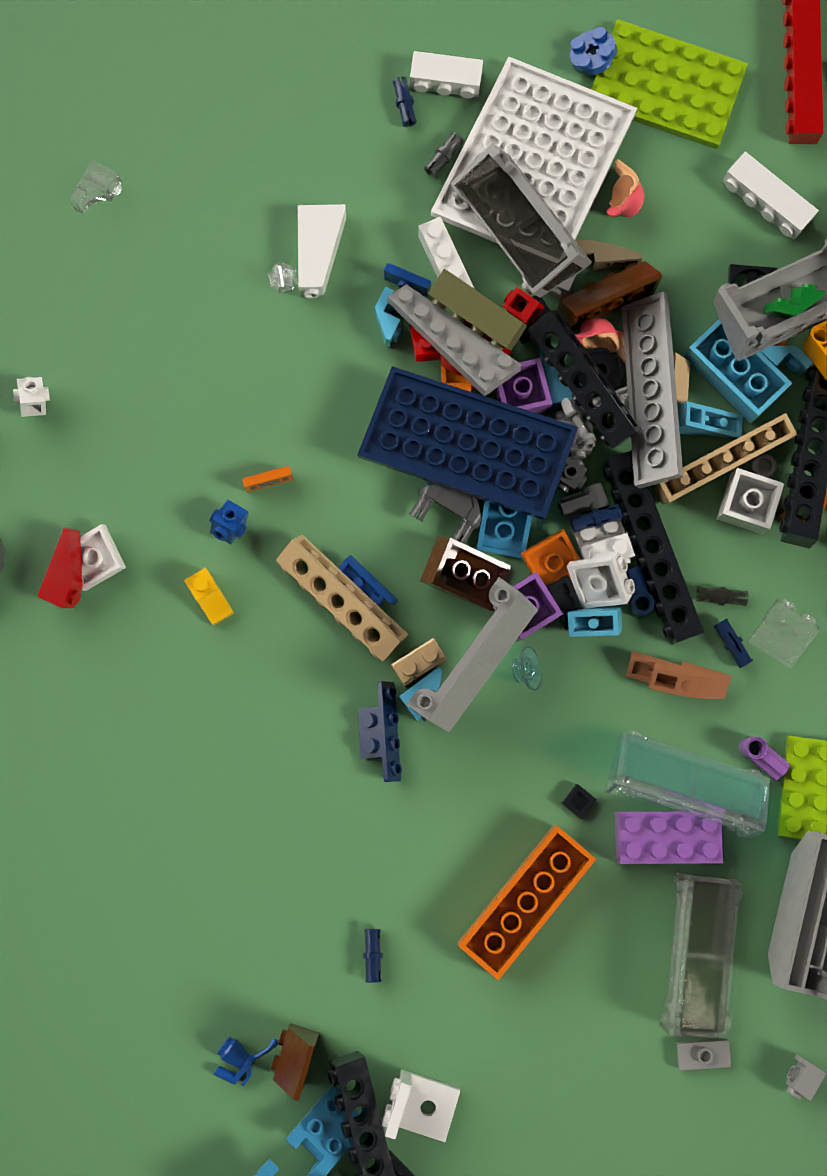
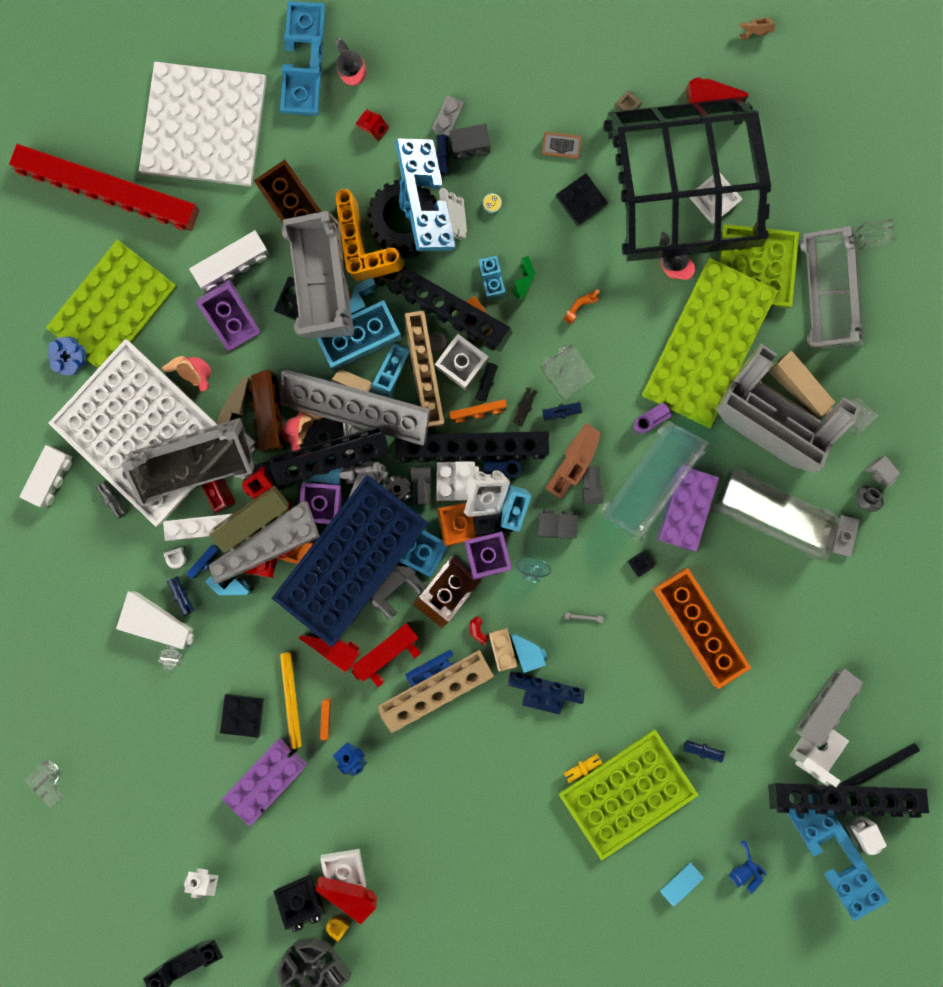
camera: 70 degrees left, 5 degrees up
(24, 572) = (337, 927): none -> yellow tile
(39, 518) = (299, 903): none -> black plate
(172, 431) = (264, 782): none -> medium lavender piece
(199, 979) = (681, 884): none -> medium azure slope
(209, 596) = (401, 791): yellow arch -> none
(240, 382) = (242, 715): none -> black plate
(276, 432) = (290, 700): none -> yellow axle
(290, 876) = (628, 794): none -> lime plate
(295, 1059) = (760, 832): reddish brown slope -> none
(304, 808) = (582, 768): none -> yellow pin
(351, 471) = (341, 655): none -> red slope
(358, 266) = (180, 596): none -> dark blue pin
(369, 523) = (384, 652): none -> red brick
(400, 248) = (176, 558): none -> white tile
(404, 101) = (57, 516): dark blue pin -> none
(430, 623) = (475, 630): none -> red arm
(479, 661) = (544, 643): light grey windscreen -> none
(480, 1100) = (829, 707): none -> light grey brick
(492, 270) = (218, 494): none -> red slope
(494, 772) = (599, 618): none -> light grey hinge
(591, 681) = (557, 525): none -> dark grey brick
(595, 518) = (437, 481): dark blue pin -> none
(650, 711) = (592, 491): none -> dark grey piece
(697, 541) = (478, 411): none -> orange plate
(705, 214) = (228, 315): none -> medium lavender slope
(735, 540) = (486, 382): none -> black pin
(762, 1071) = (869, 498): none -> dark grey plate
(800, 299) = (324, 273): green slope -> none

